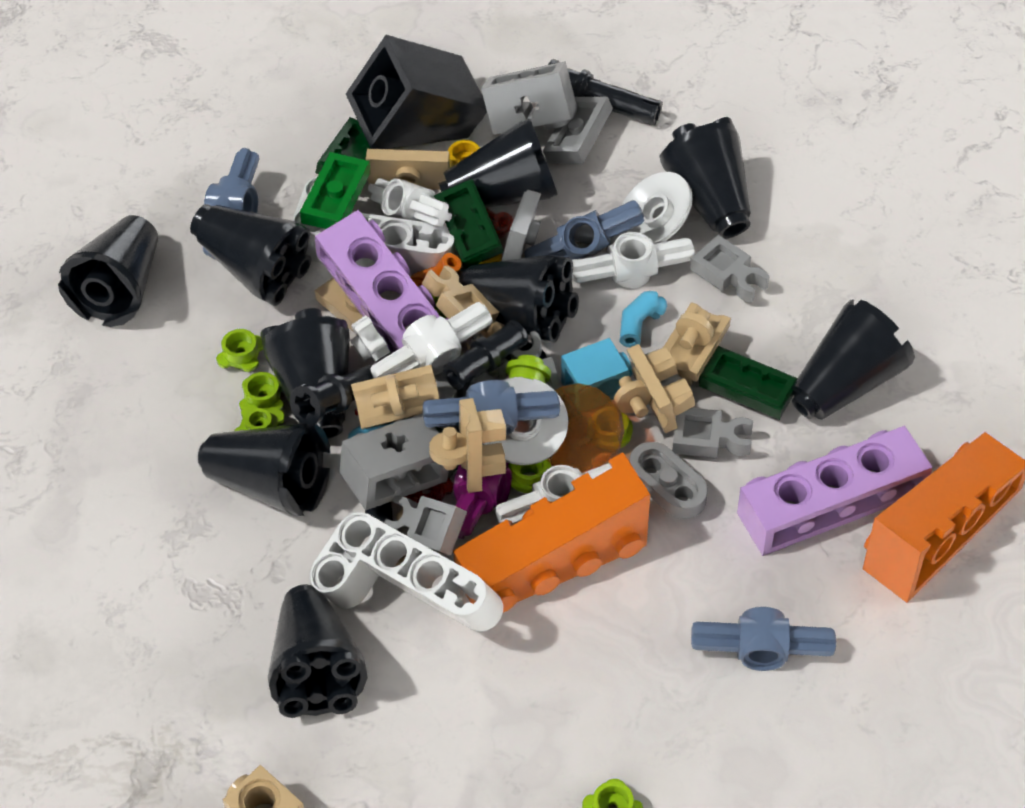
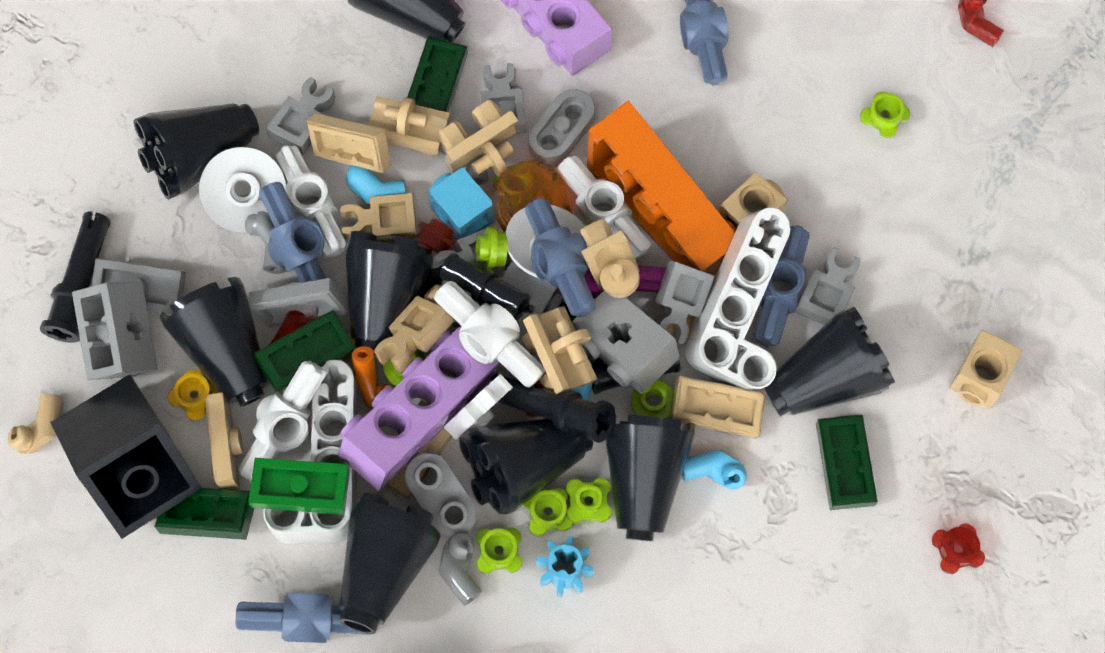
camera: 105 degrees left, 15 degrees up
(85, 721) = (964, 536): none -> clear red plate
(202, 390) = (561, 579): none -> medium azure gear
(215, 651) = (846, 462): none -> dark green plate
(235, 317) = (455, 566): none -> light grey arm
(247, 546) = (718, 467): none -> medium azure arm
(306, 543) = (718, 407): none -> tan plate
(320, 294) = (441, 494): none -> light grey plate
(337, 508) = (642, 408): none -> lime plate
(405, 681) = (828, 292): none -> light grey plate
(442, 648) = (778, 303): none -> sand blue axle
(478, 66) = (40, 432): none -> tan arm
(523, 613) = (753, 191): none -> tan brick
(564, 343) = (435, 236): none -> clear red plate
(599, 314) = (386, 217): none -> tan plate
(682, 289) = (349, 142): none -> tan plate

